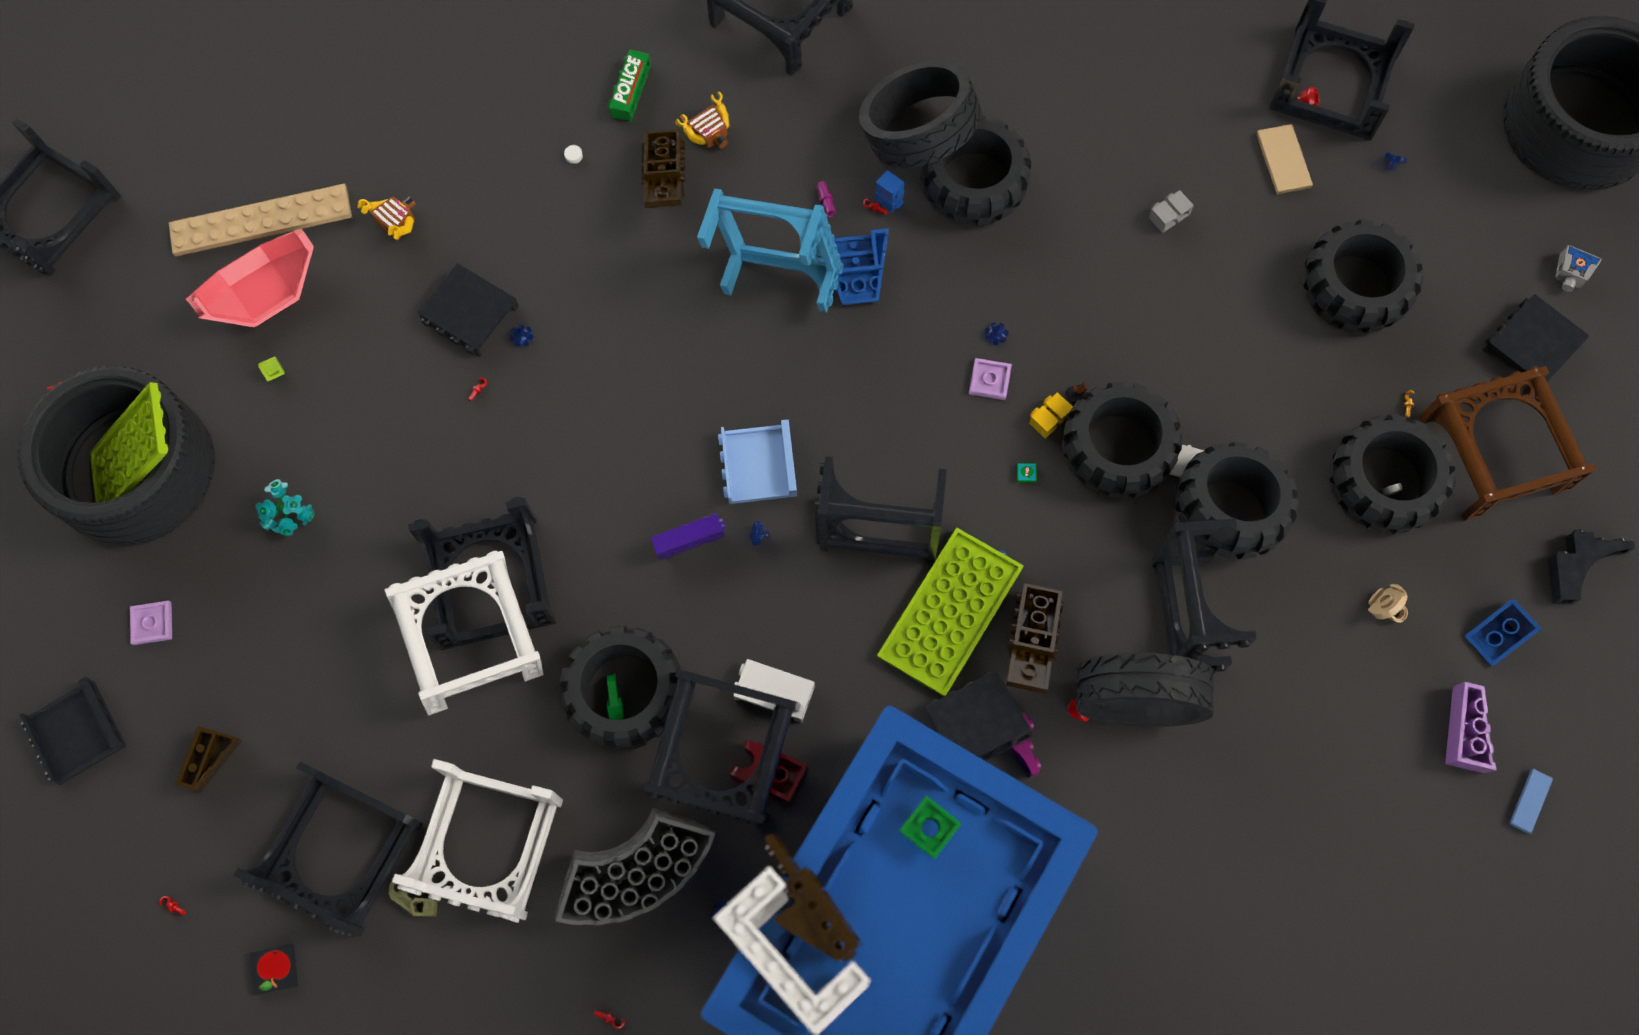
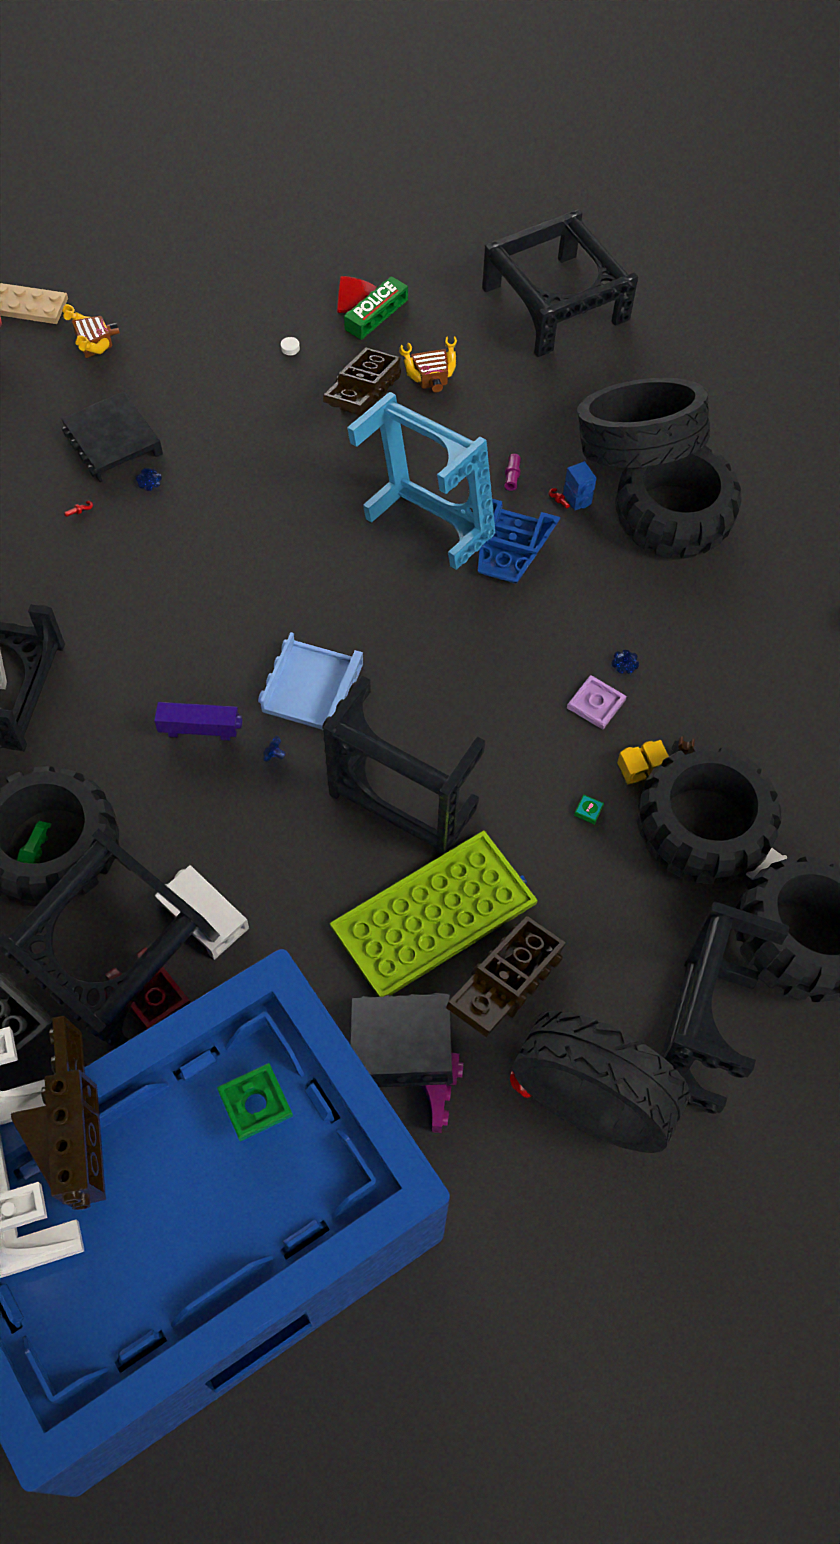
camera: 20 degrees right, 10 degrees down
(602, 78) = (352, 292): none -> red brick

